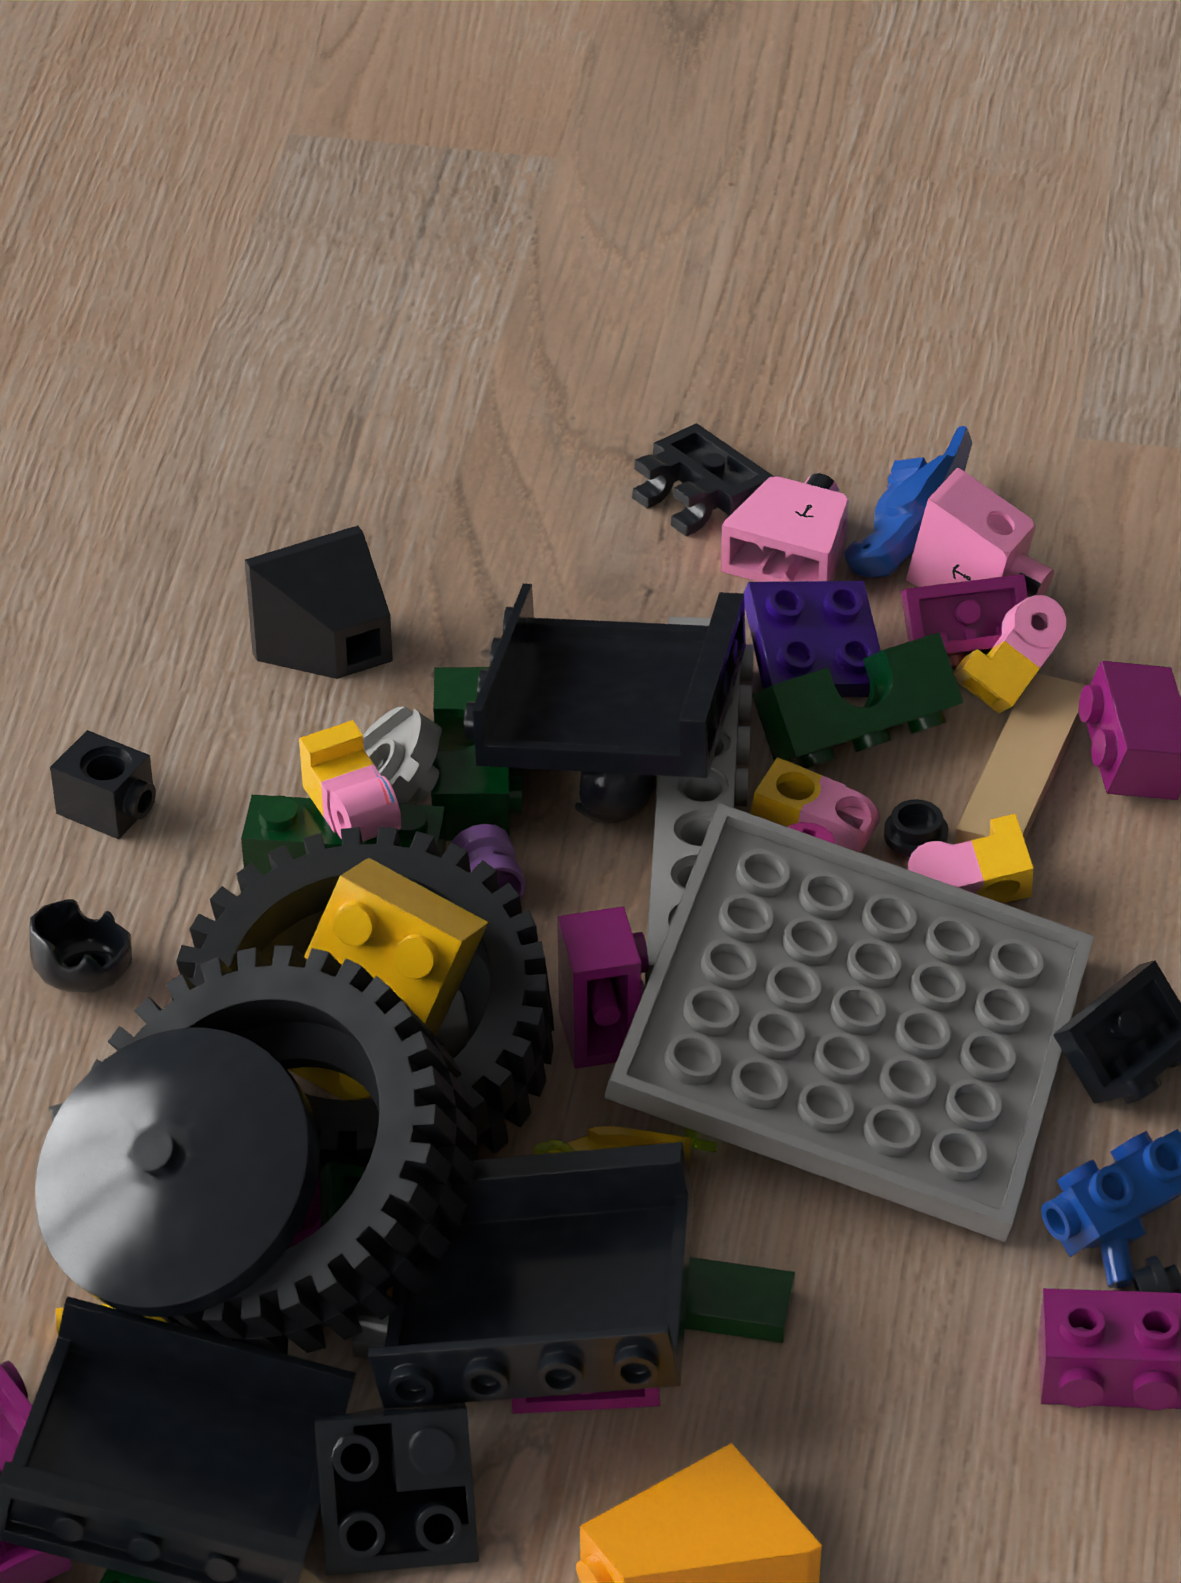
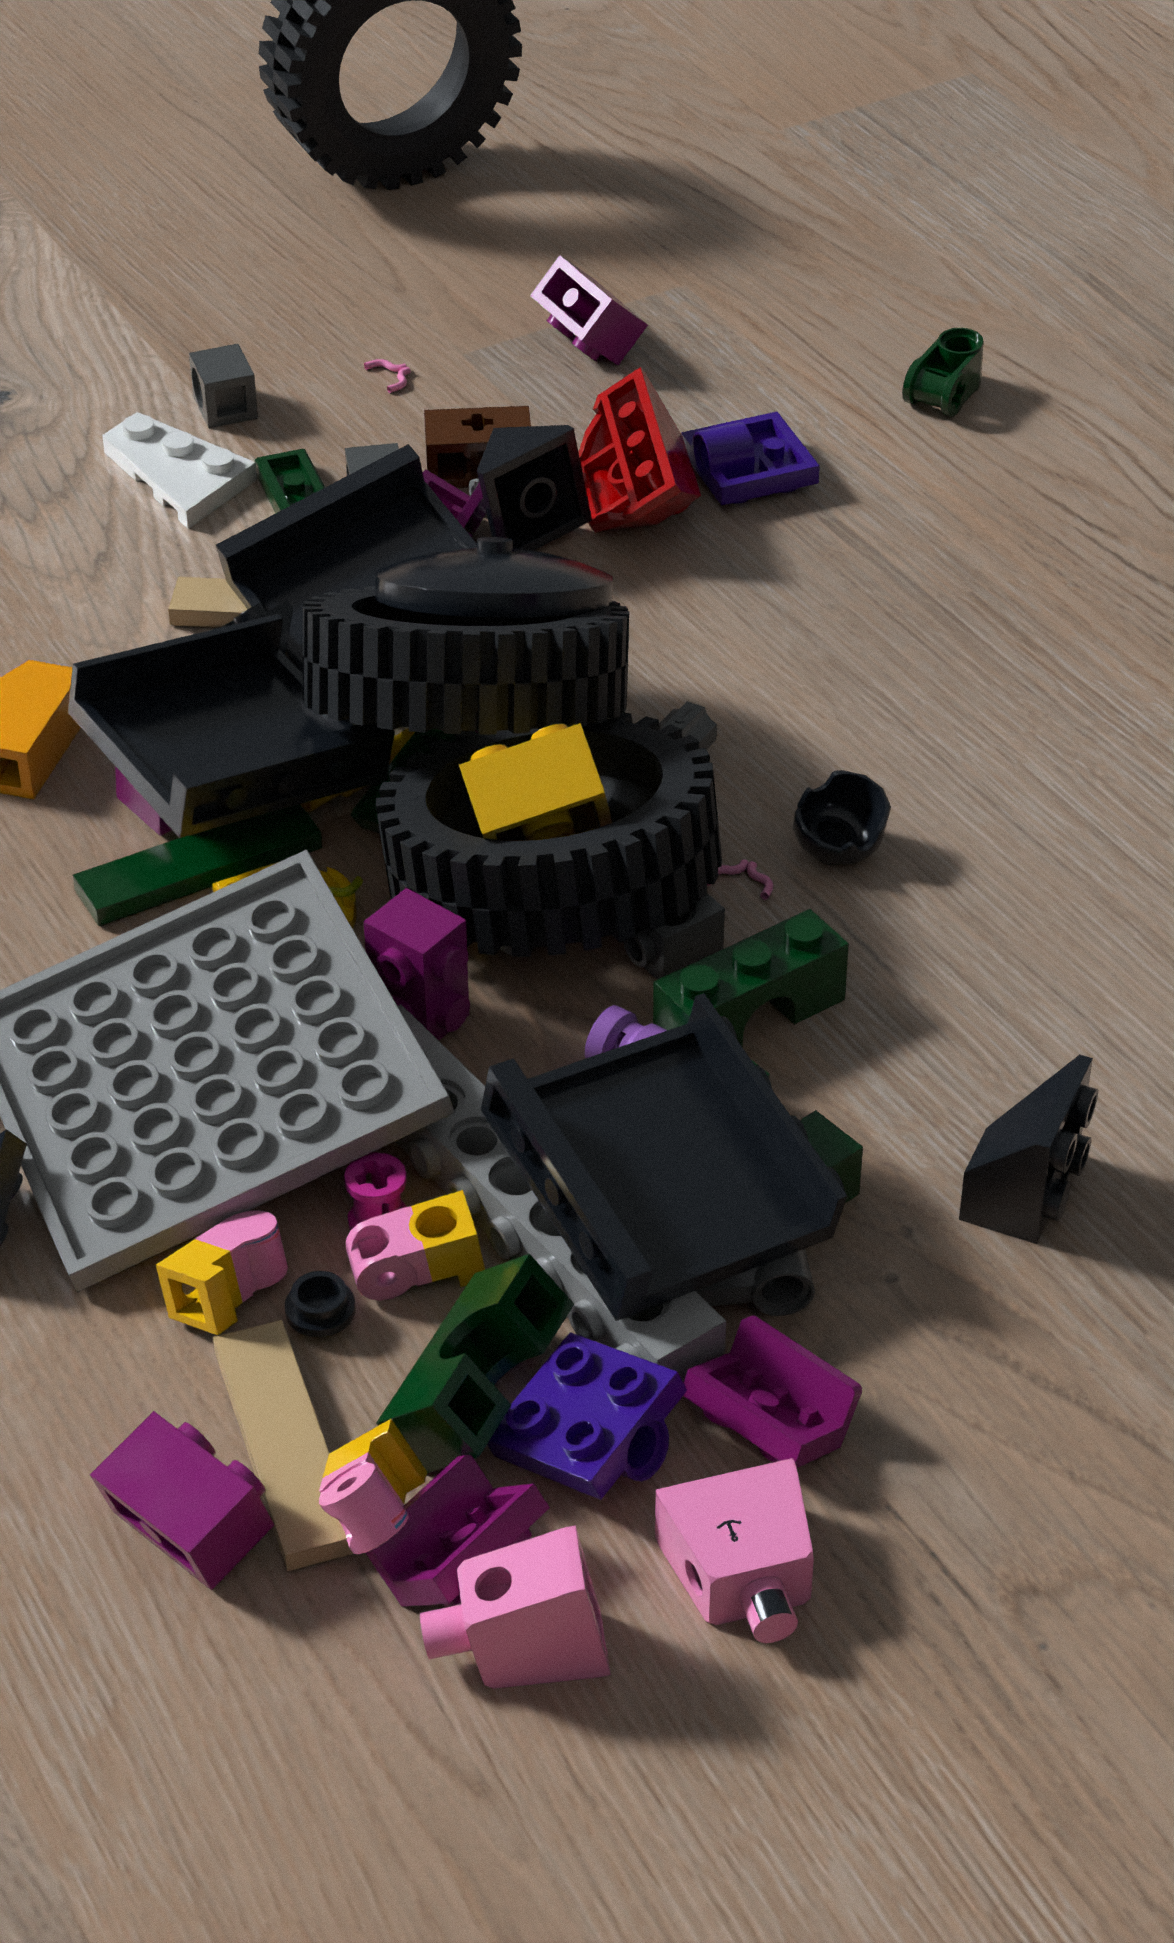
camera: 140 degrees right, 0 degrees up
(103, 784) = (1001, 942): black brick -> none
(346, 782) = (748, 937): leg -> none
(403, 751) = (798, 1061): light grey plate -> none
(674, 584) = (775, 1394): none -> magenta bracket
(710, 476) = (914, 1584): black plate -> none
(902, 509) = (659, 1664): blue animal -> none

